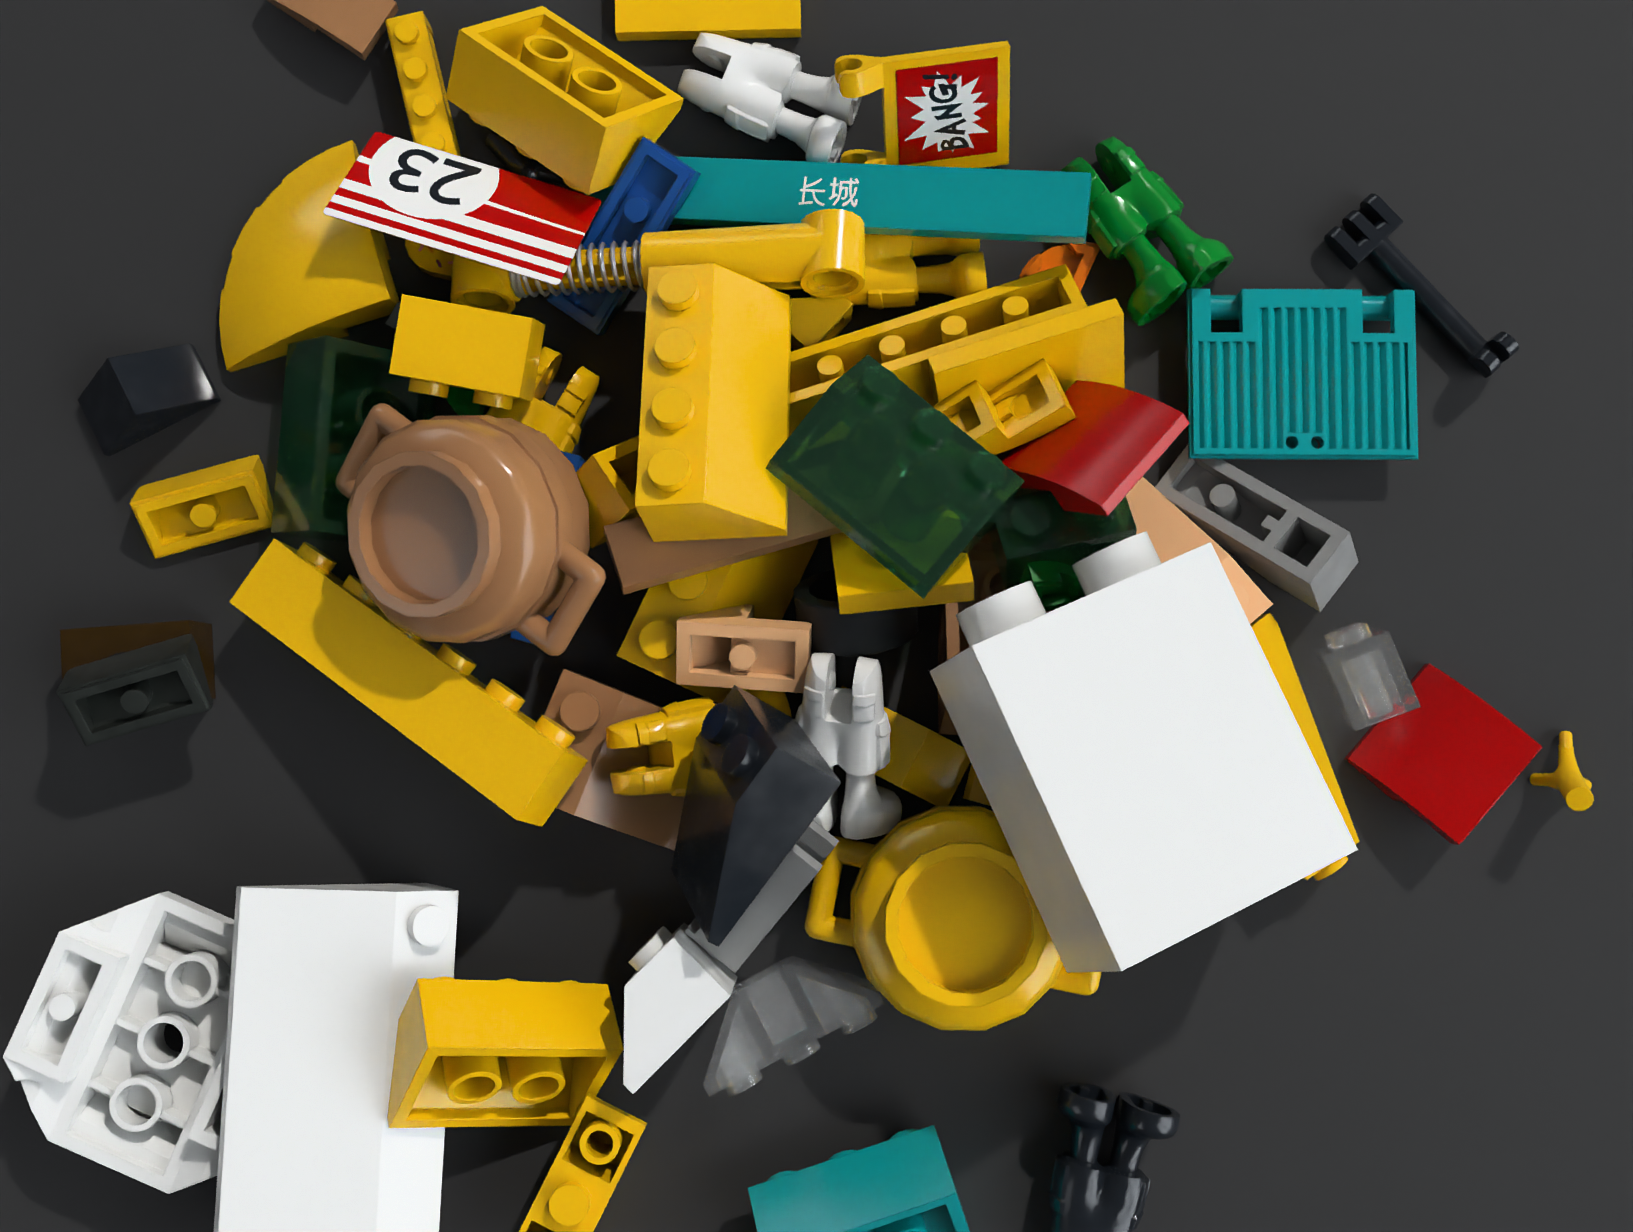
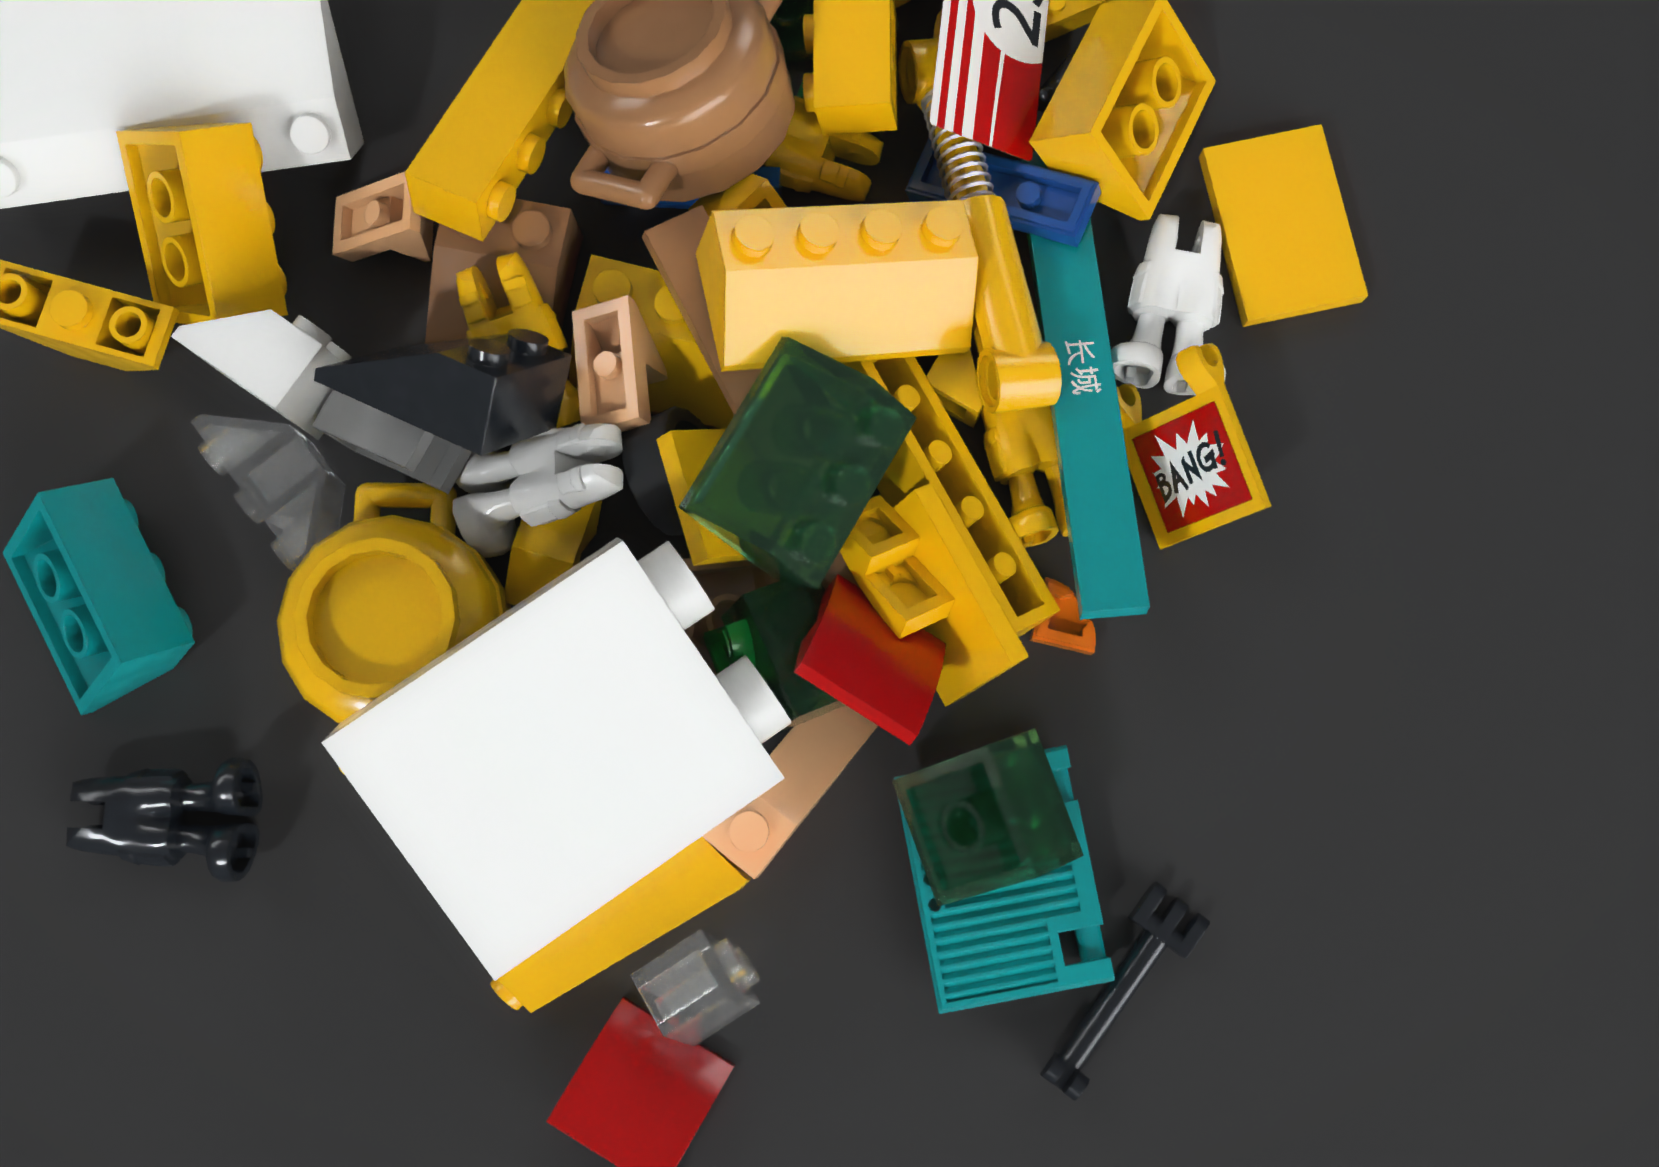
camera: 80 degrees right, 5 degrees down
(524, 871) = (380, 220): none -> light nougat slope
(1142, 209) = (1135, 678): green piece -> none
(1253, 372) = (988, 818): none -> clear green slope
(1262, 527) = (836, 863): light grey slope -> none

